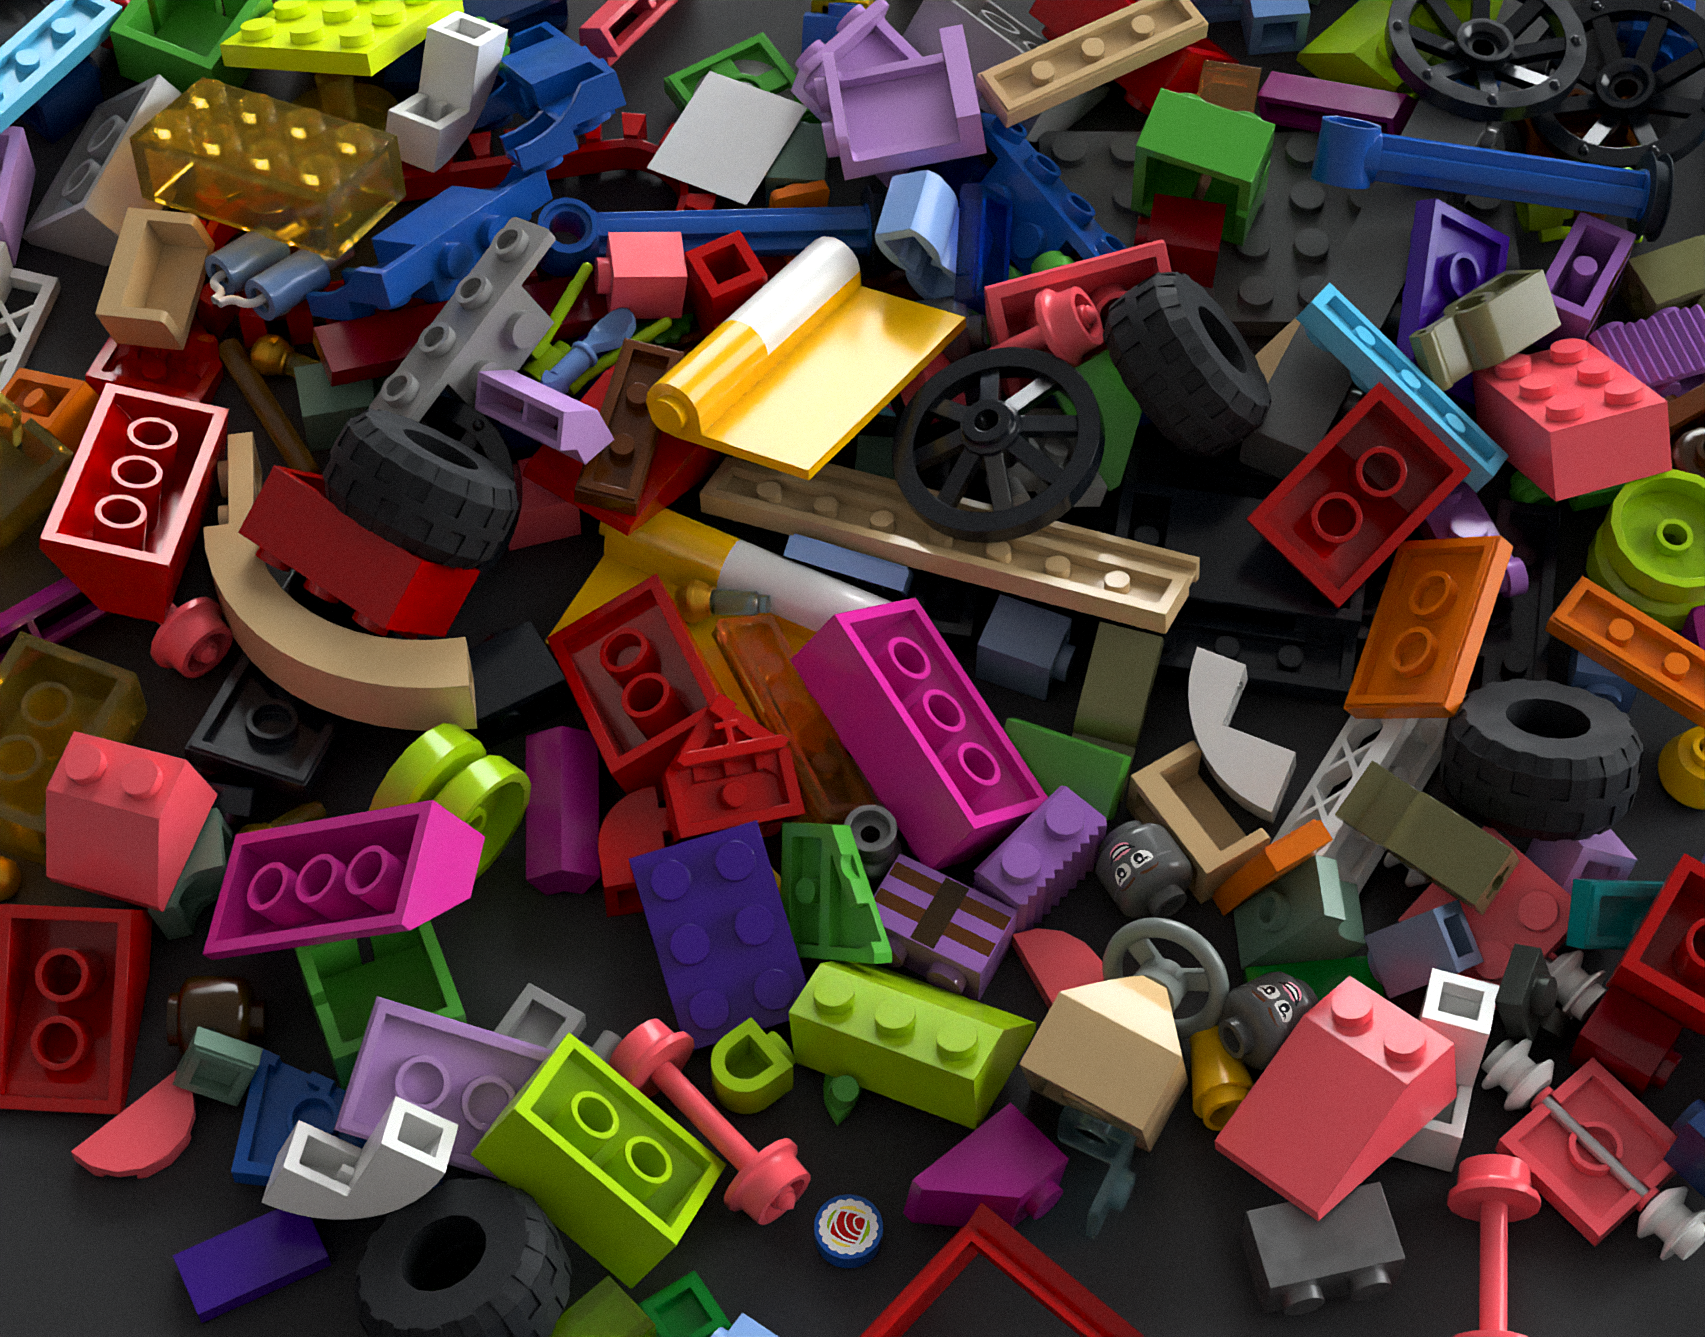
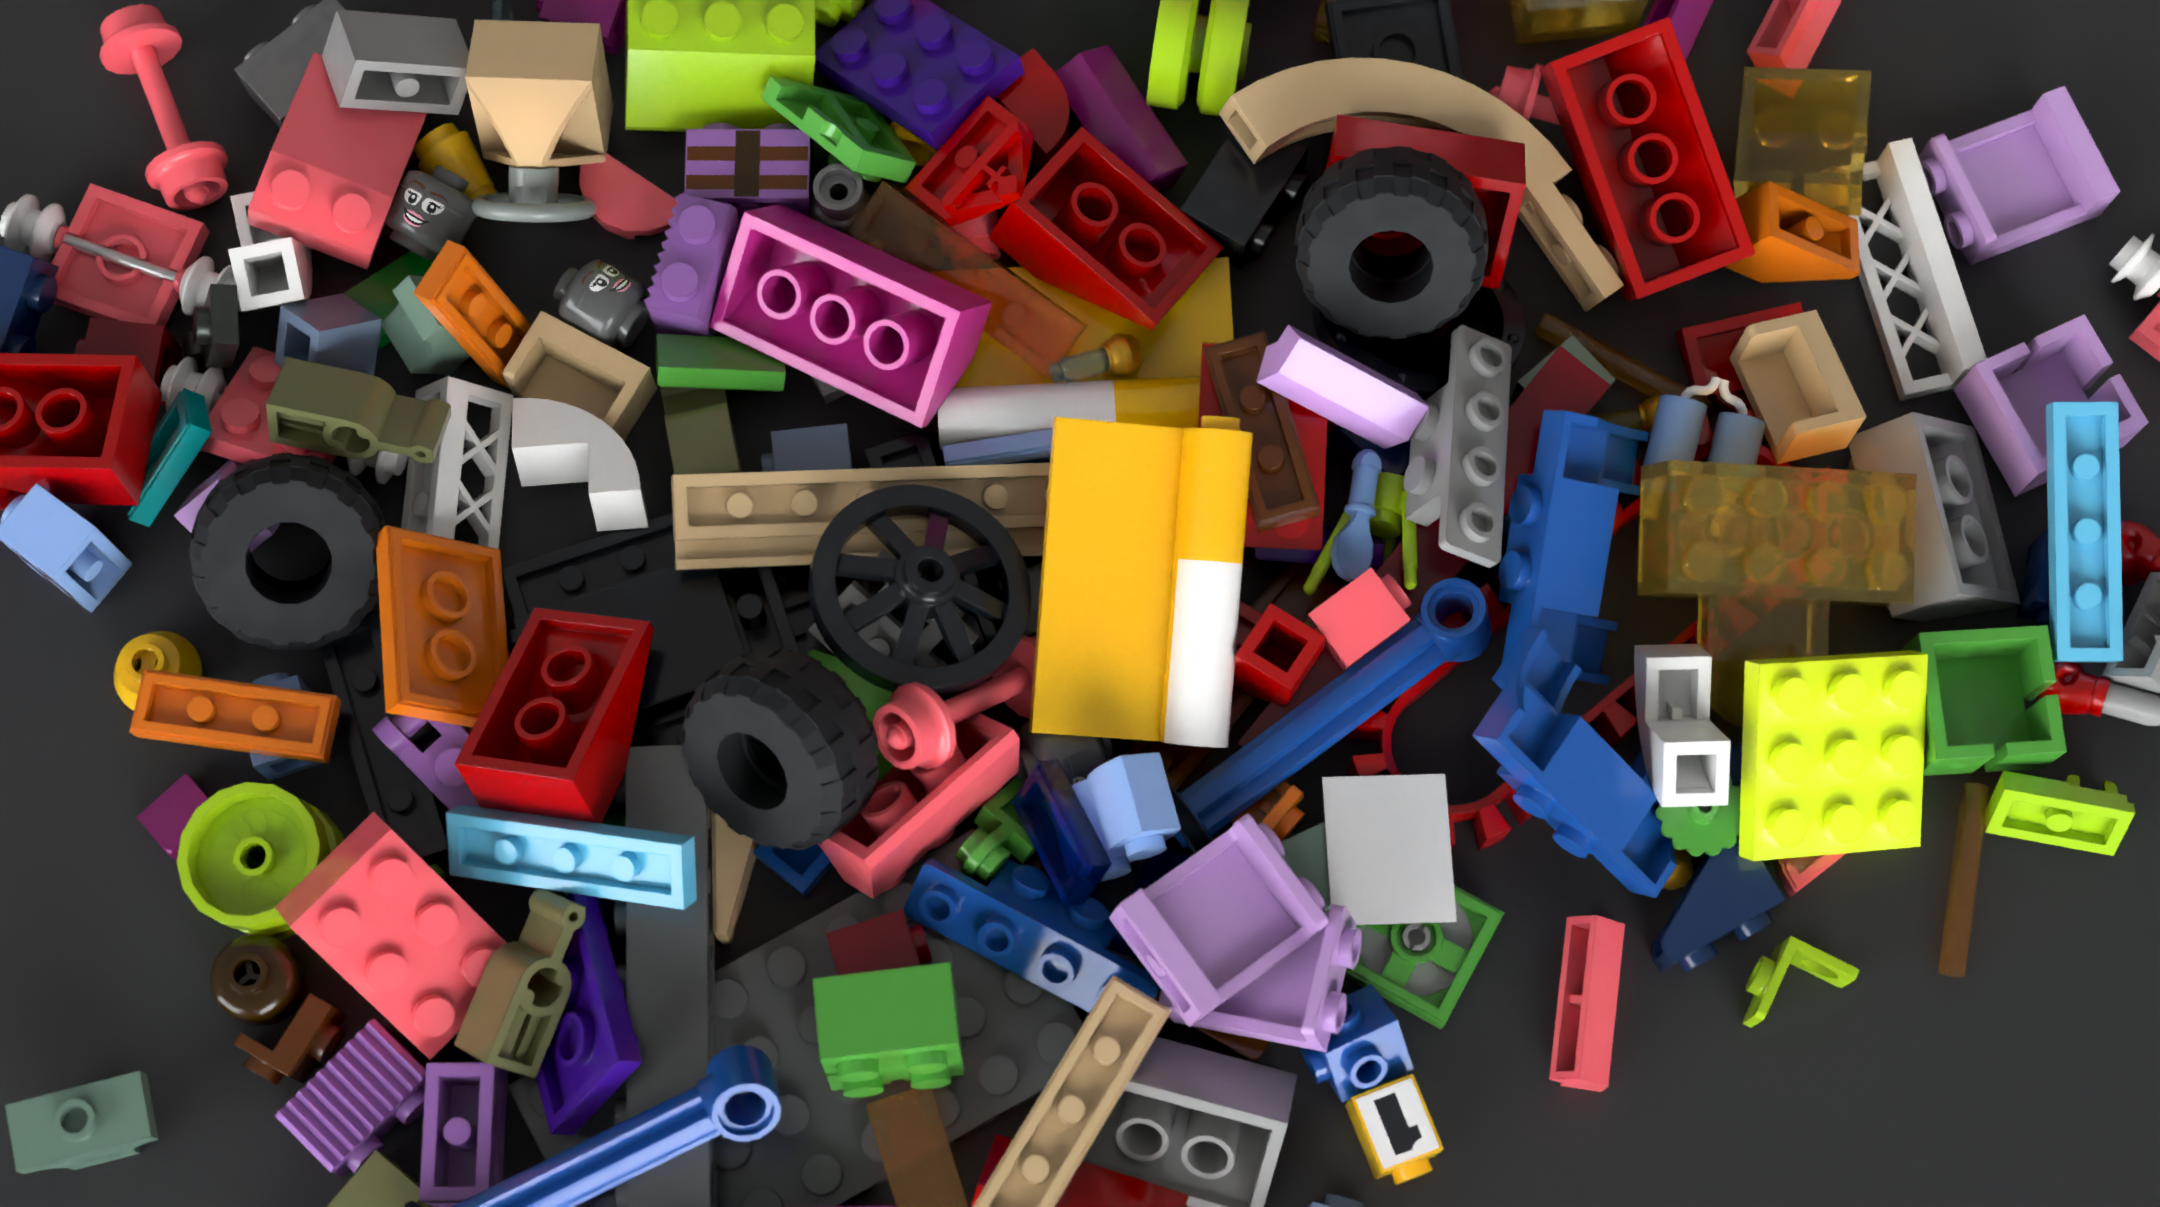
camera: 150 degrees right, 15 degrees up
(1236, 1156) = (396, 62): none -> light grey brick

